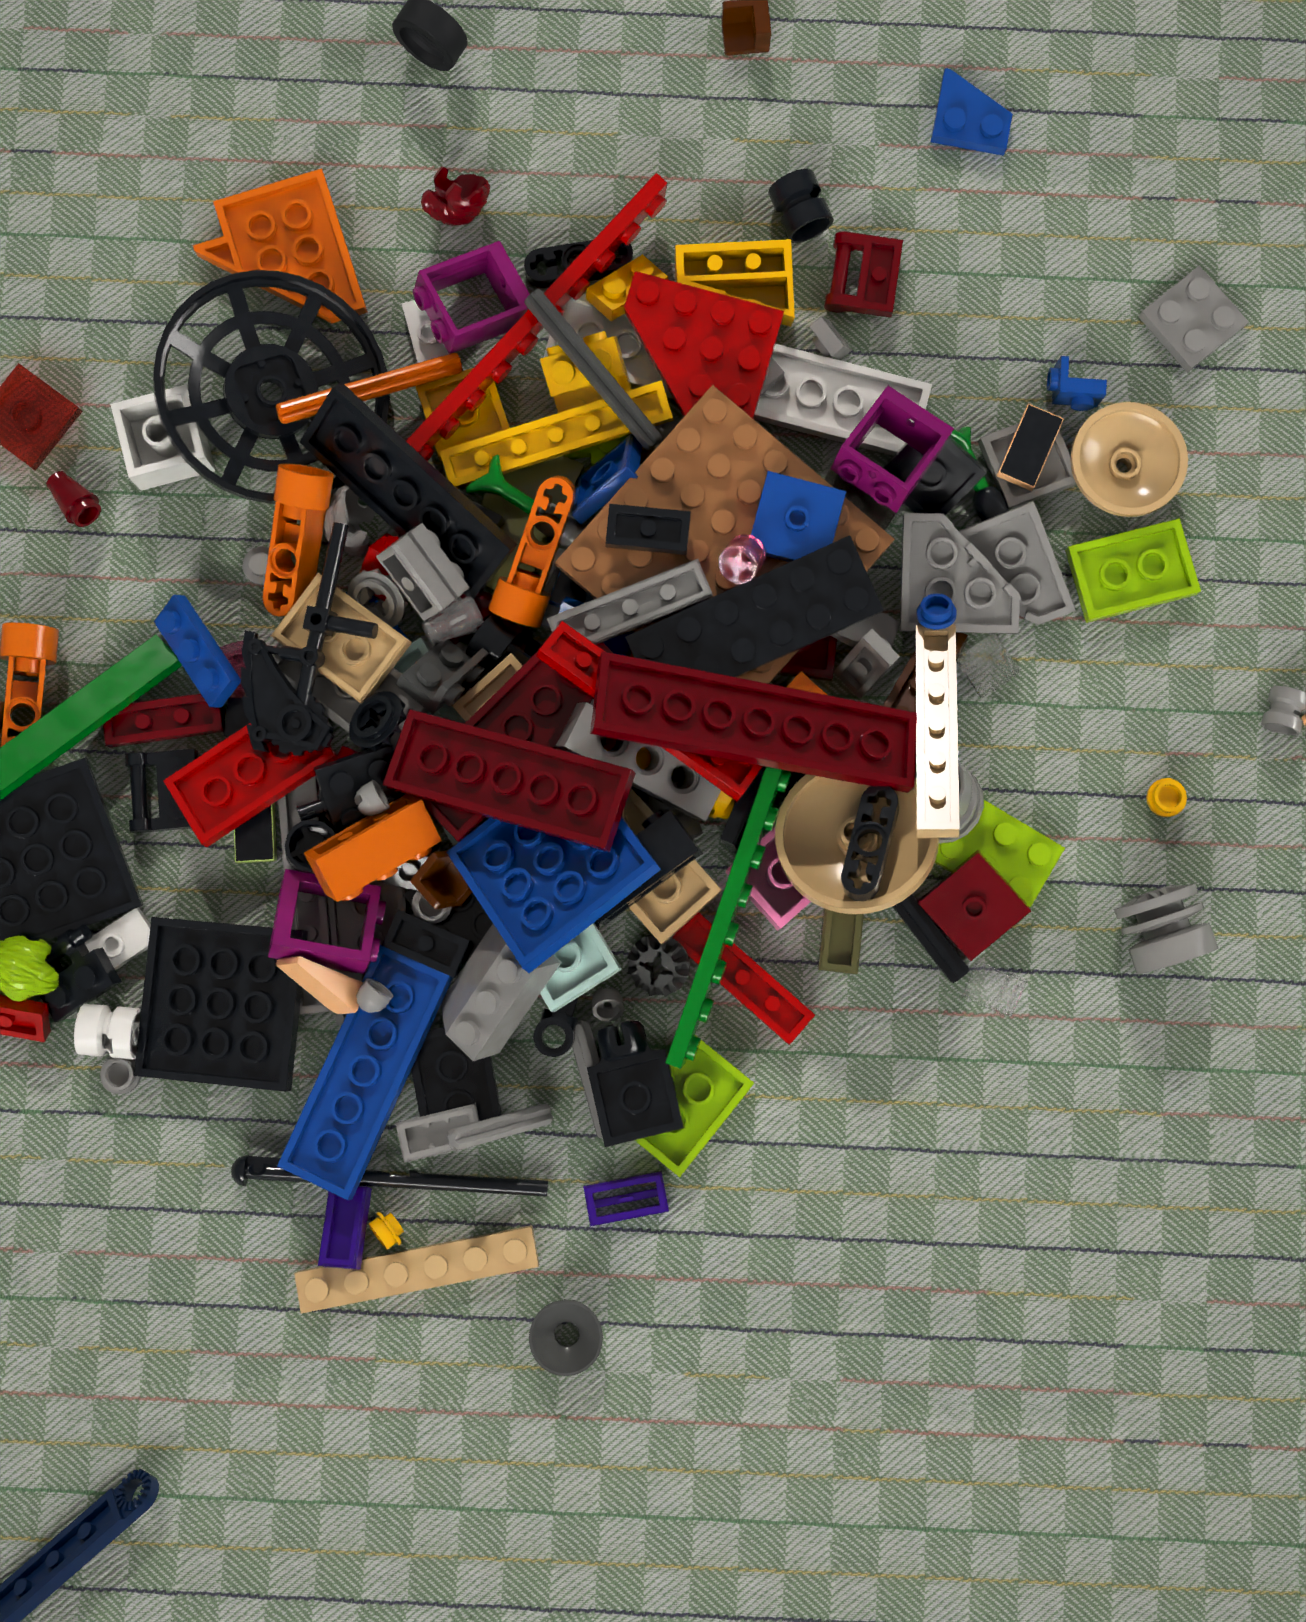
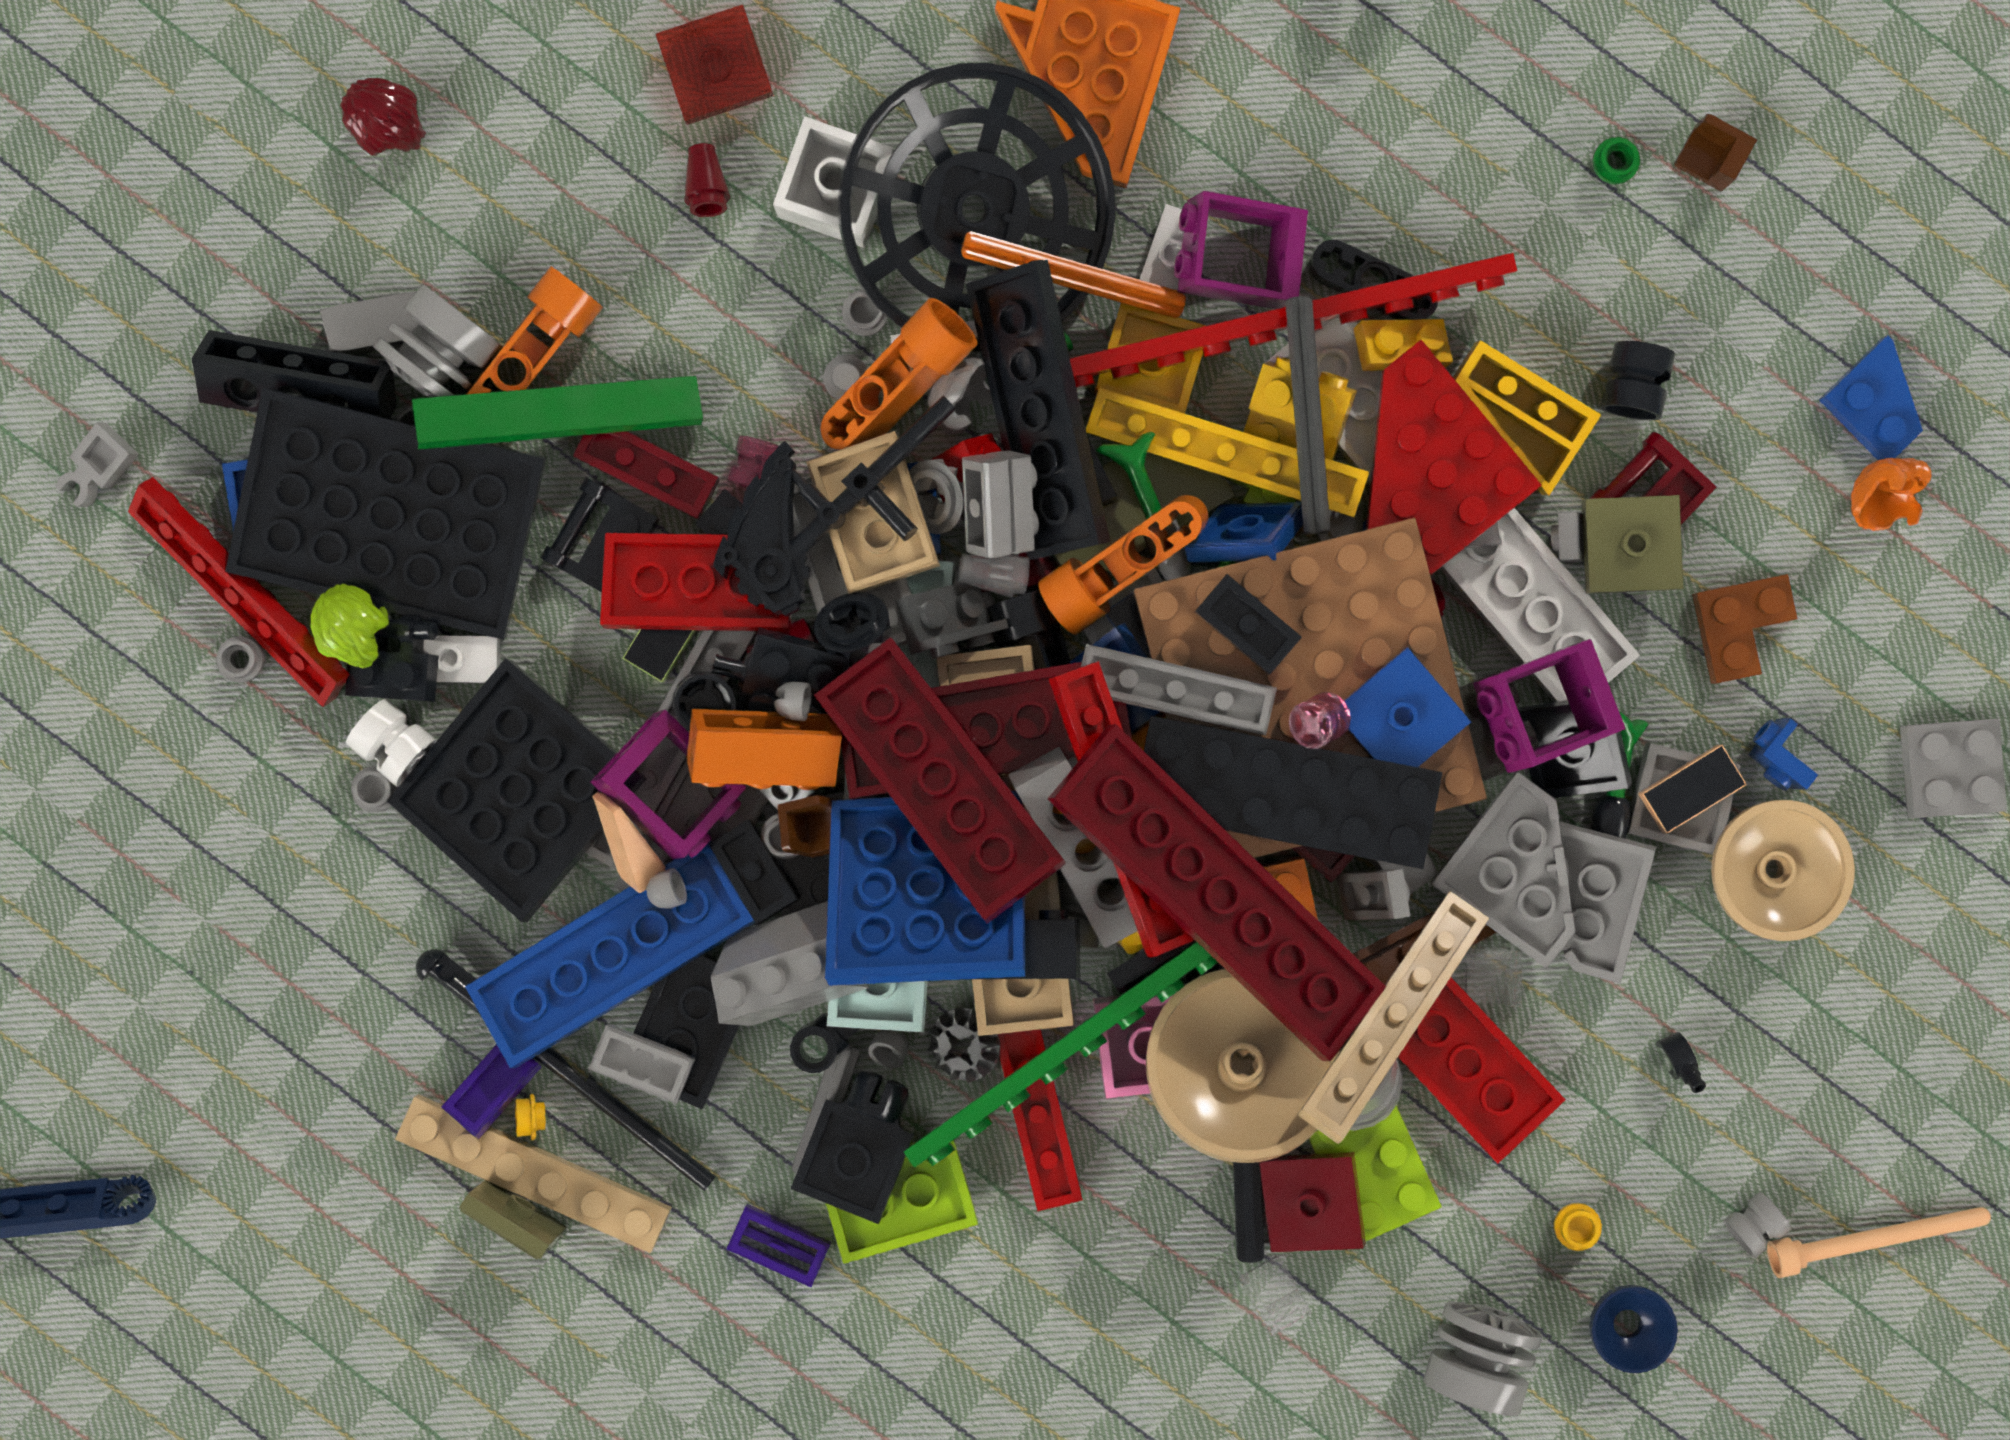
camera: 35 degrees right, 5 degrees up
(197, 651) = (724, 424): blue plate -> none
(244, 514) = (862, 315): none -> light grey plate
(422, 1306) = (512, 1218): none -> olive plate
(455, 200) = (1295, 134): dark red hair -> none
(499, 1127) = (702, 1098): light grey axle -> none
(560, 1358) = (617, 1358): dark grey piece -> none
(687, 66) = (1625, 151): none -> green plate
(840, 942) = (1152, 1149): olive tile -> none
(852, 867) = (1214, 1099): black beam -> none
(873, 314) = (1632, 544): none -> olive plate
(936, 612) = (1478, 894): blue plate -> none
(974, 320) = (1728, 620): none -> dark orange plate
(1017, 167) = (1887, 492): none -> orange hair
(1023, 739) = (1478, 1073): none -> red plate
(1132, 570) = (1707, 981): lime plate -> none
(1155, 634) = (1682, 1061): none -> black piece
(1271, 834) = (1648, 1344): none -> dark blue piece

